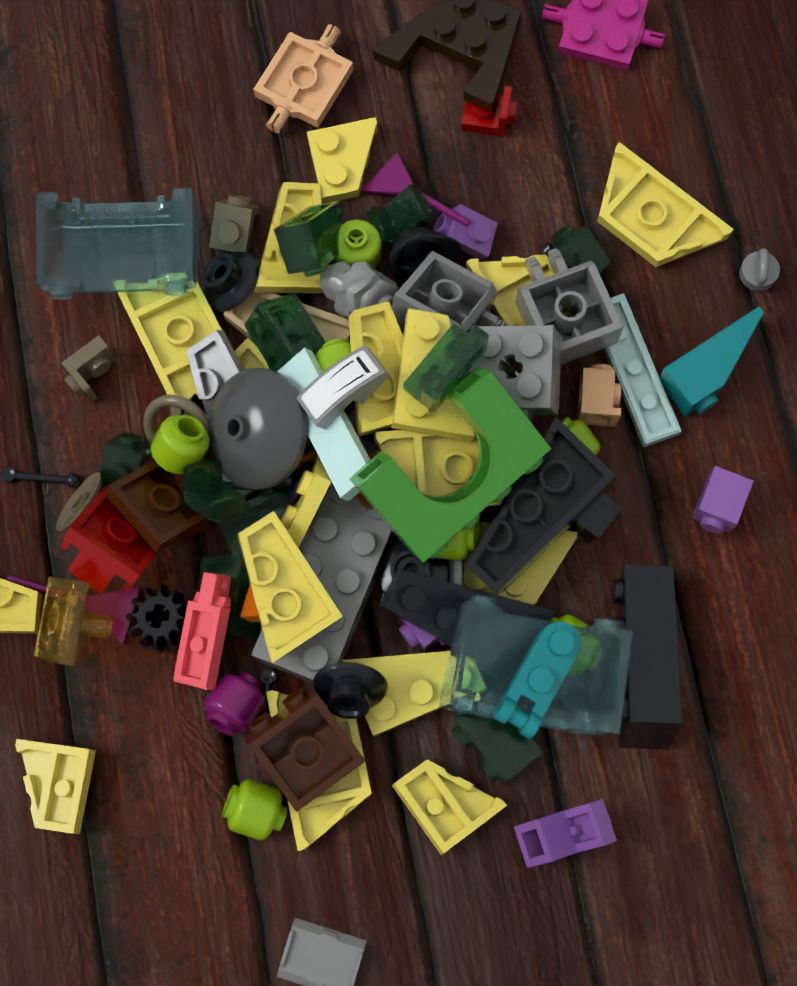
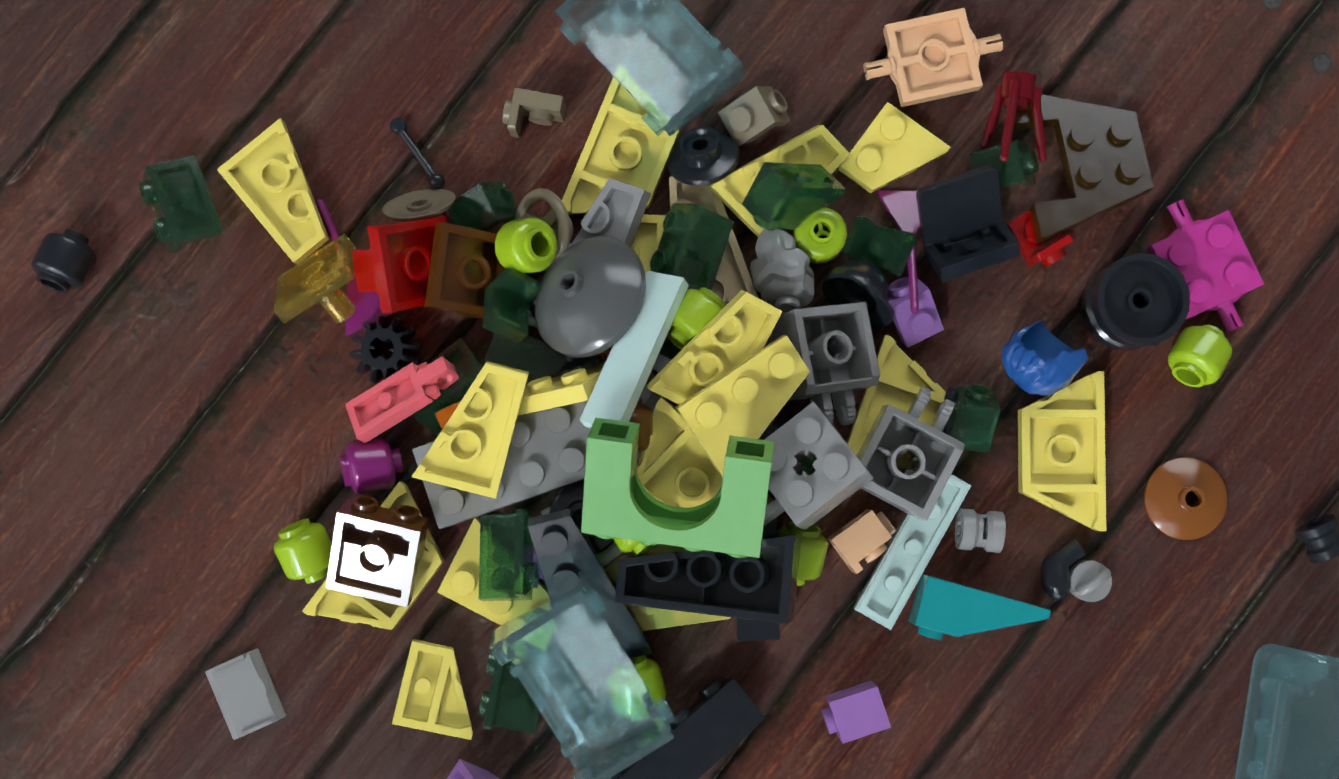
camera: 50 degrees right, 10 degrees up
(56, 783) = (199, 383): light yellow wing -> none
(347, 380) = (671, 339): slope -> none
(350, 688) = (448, 550): black piece -> none
(379, 45) = (1015, 94): none -> dark red plant
(401, 659) = (506, 558): none -> clear green bracket
(420, 95) = (1018, 168): none -> clear green bracket
(435, 148) = (964, 223): none -> black bracket
(446, 365) = (756, 412): clear green bracket -> none
(539, 677) = (578, 692): teal plate -> none
(577, 177) = (1040, 360): none -> blue hair
(589, 83) = (1135, 302): none -> black wheel
(661, 311) = (980, 530): none -> light grey wheel
(662, 75) = (1199, 355): none -> lime head
(732, 285) = (1056, 569): none -> black arm
(753, 179) = (1166, 496): none -> dark orange dish

